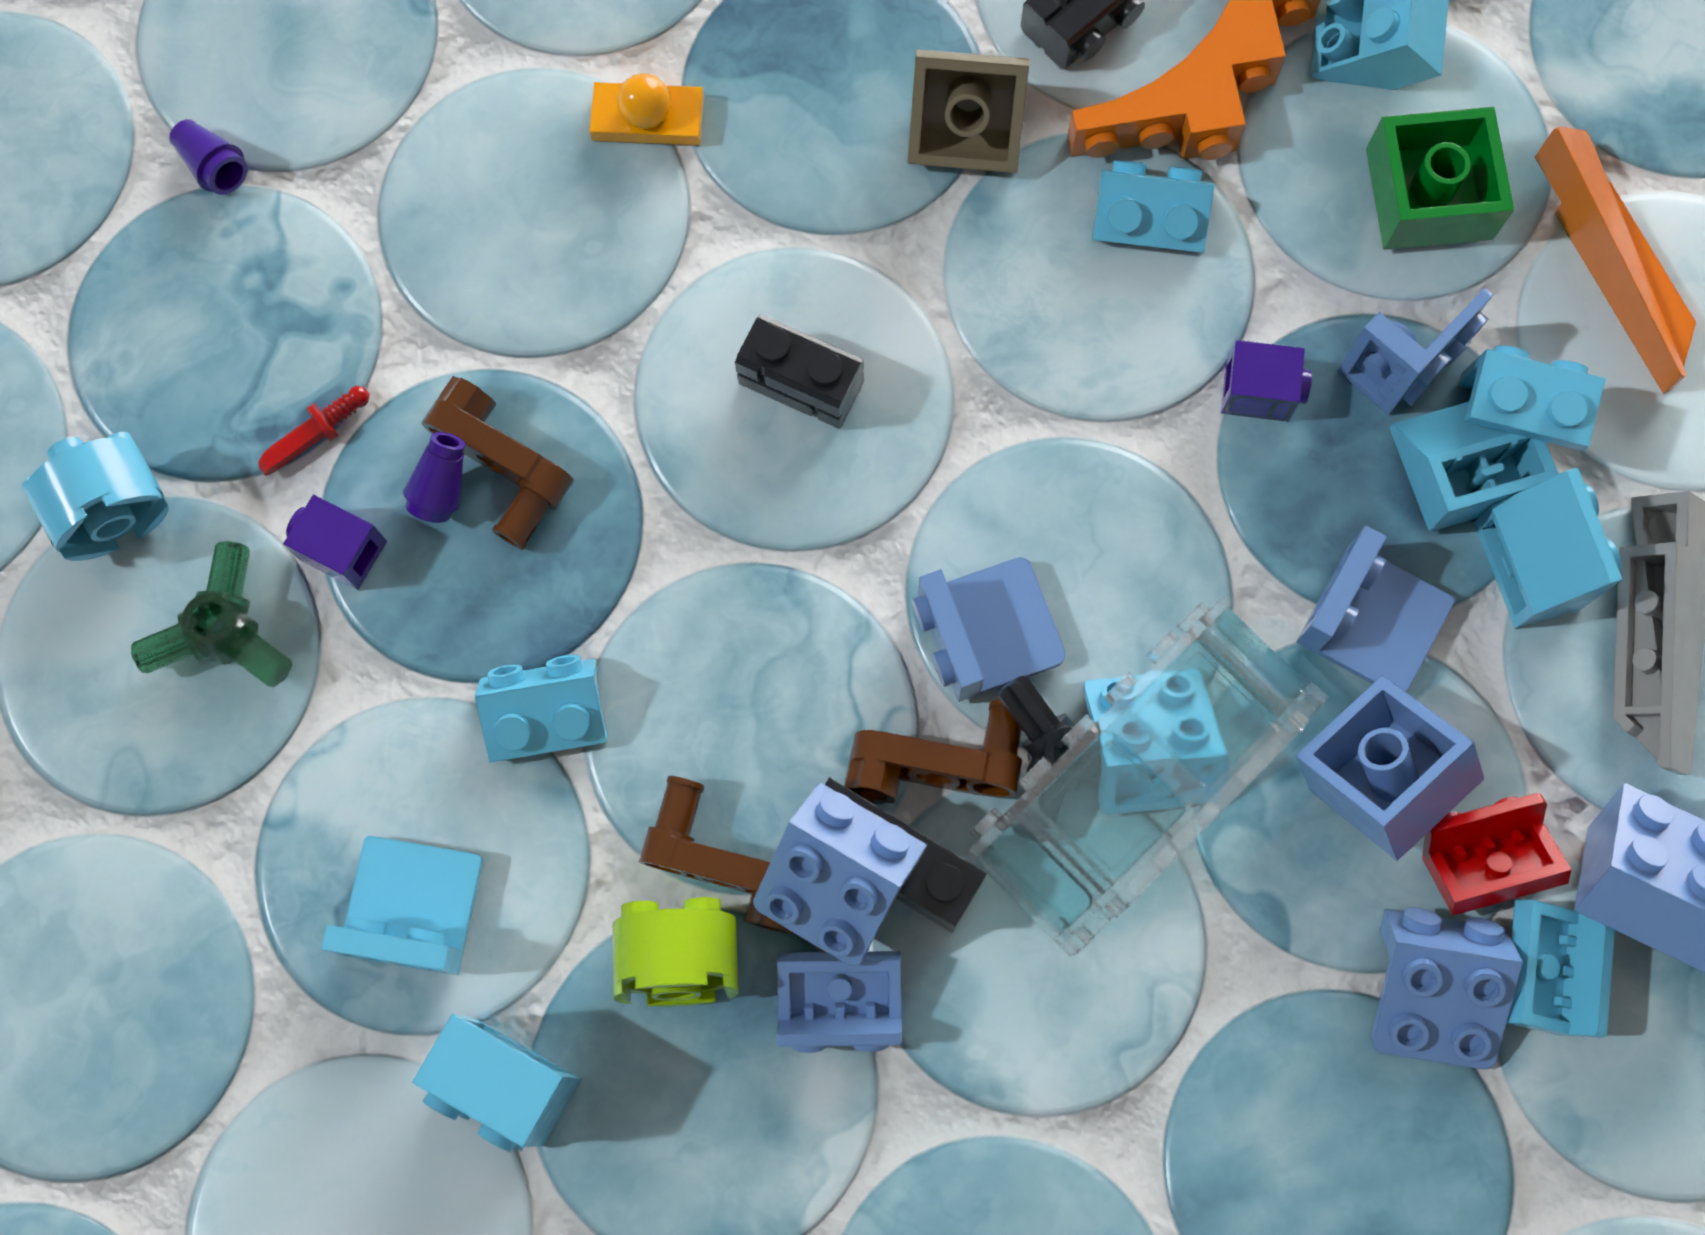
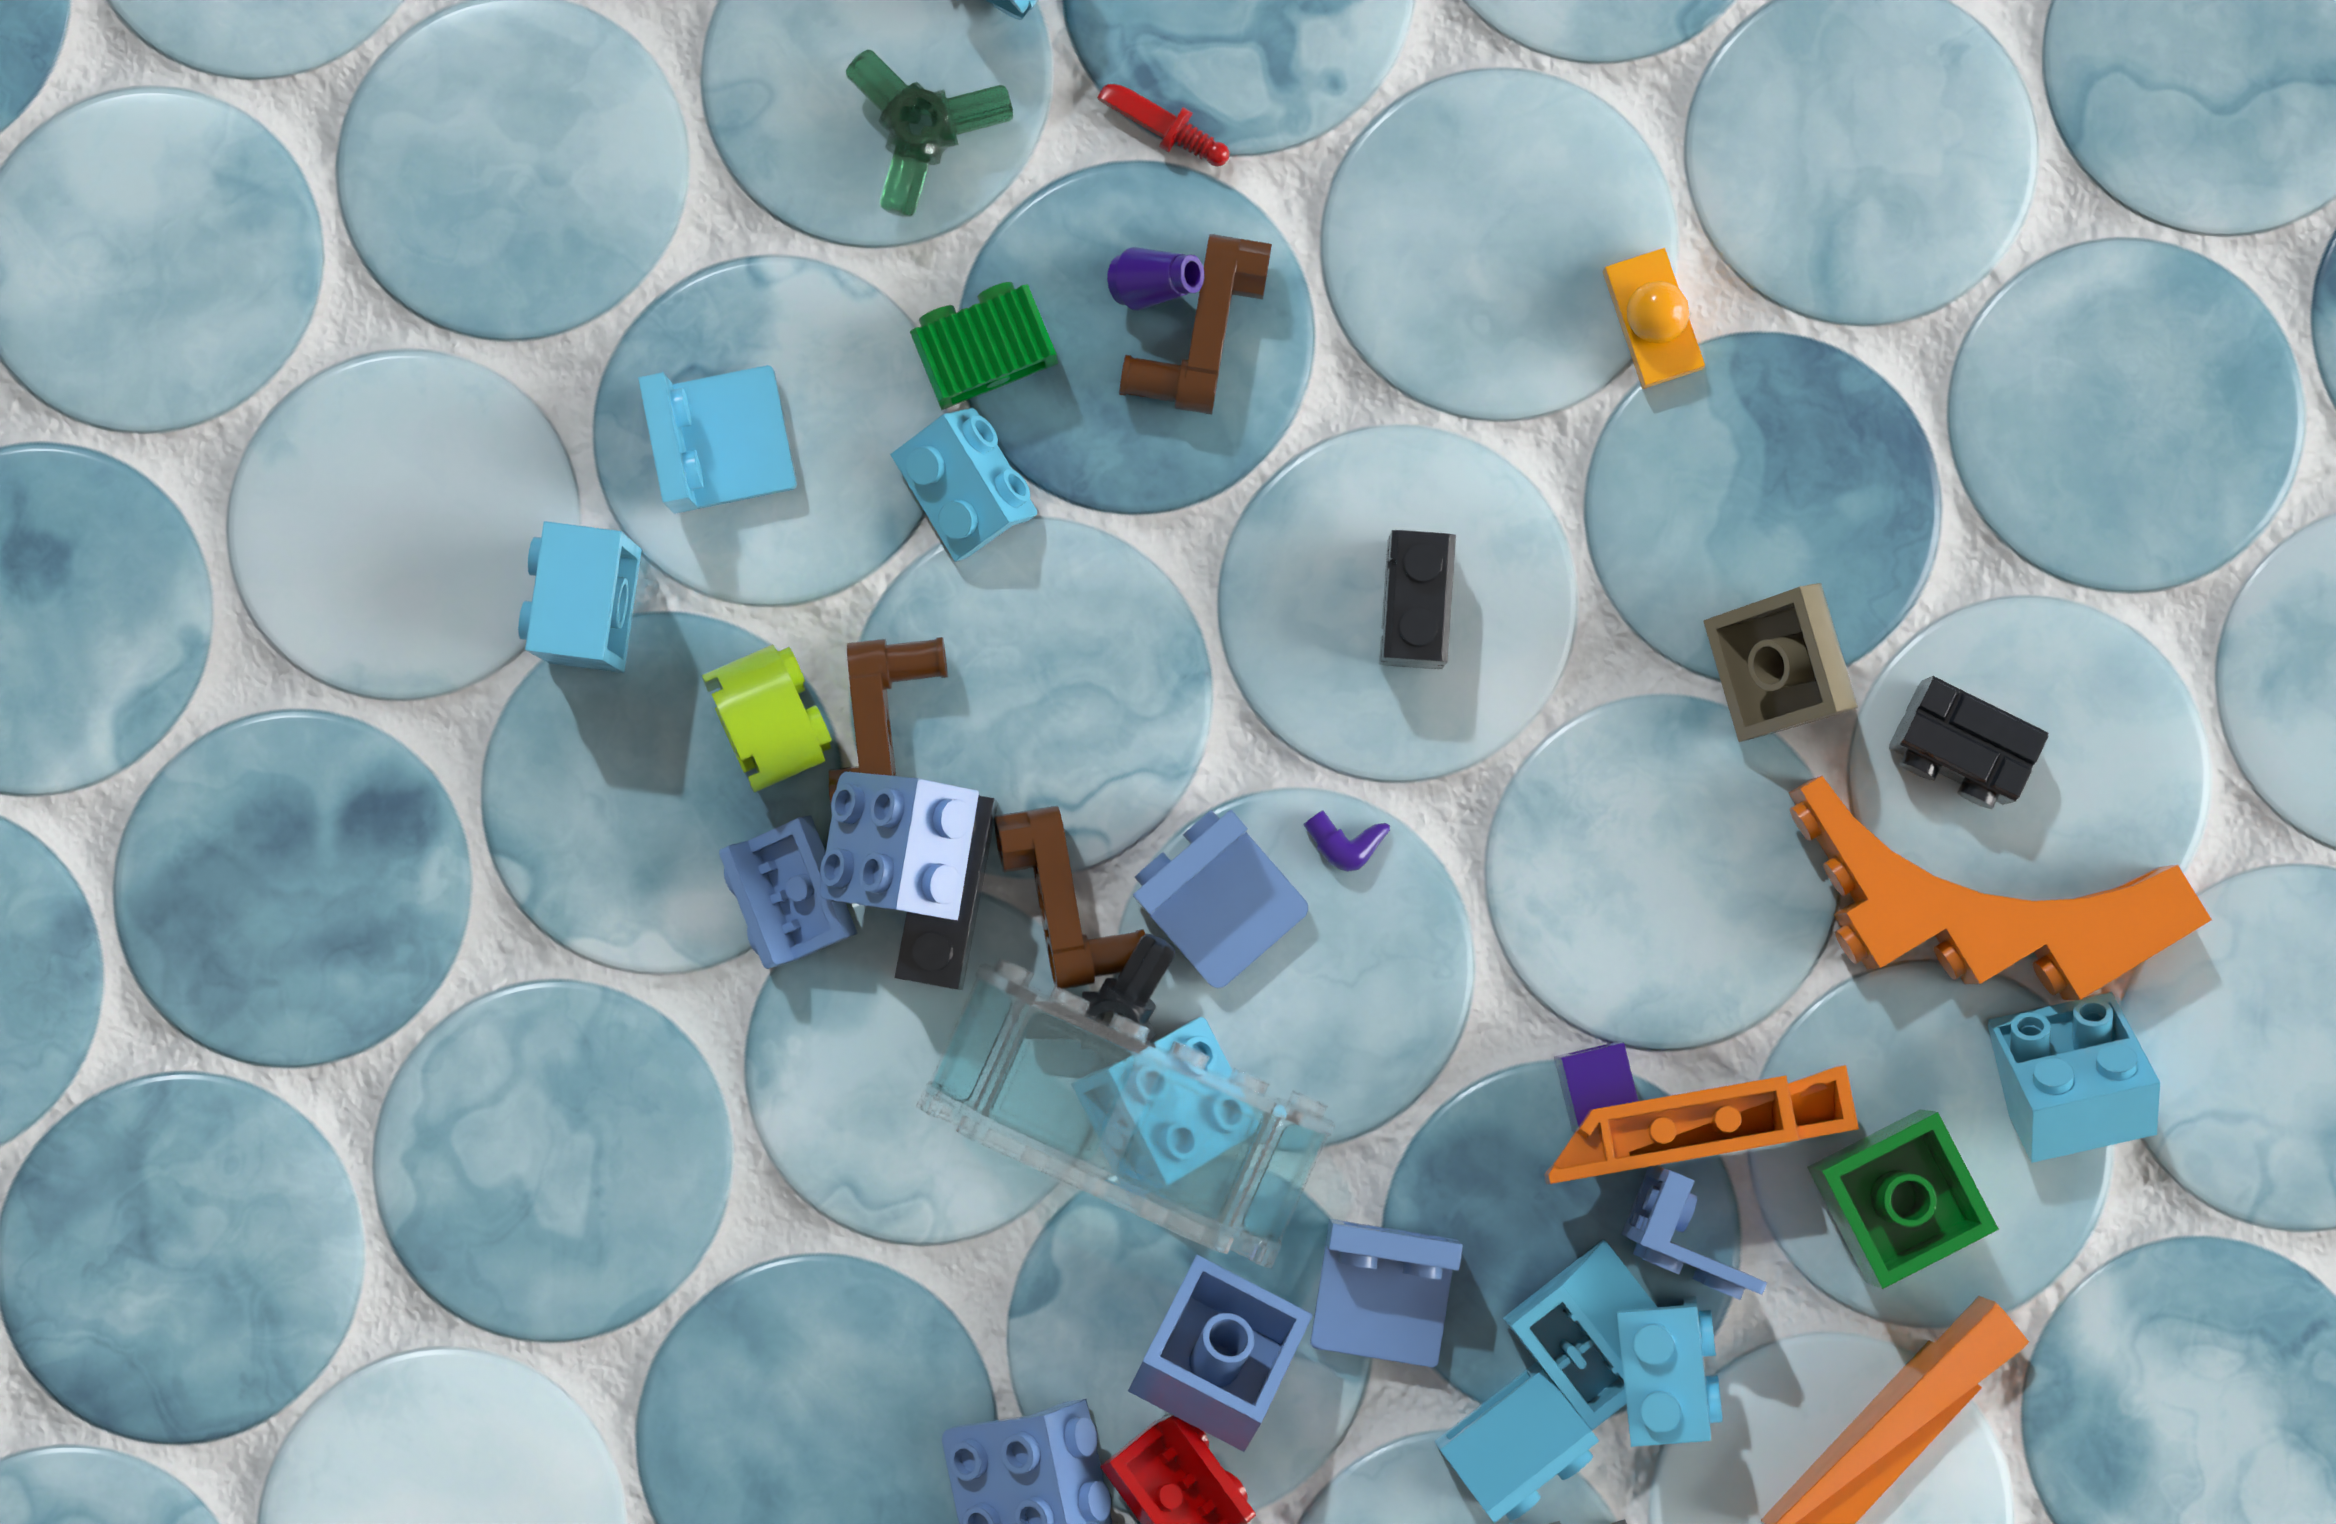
camera: 65 degrees right, 10 degrees up
(334, 541) = (1051, 200): dark purple brick -> none
(429, 645) = (983, 344): none -> green brick
(981, 517) = (1337, 849): none -> dark purple animal
(1153, 208) = (1756, 901): medium azure bracket -> none
(1328, 302) = (1706, 1124): none -> orange wedge

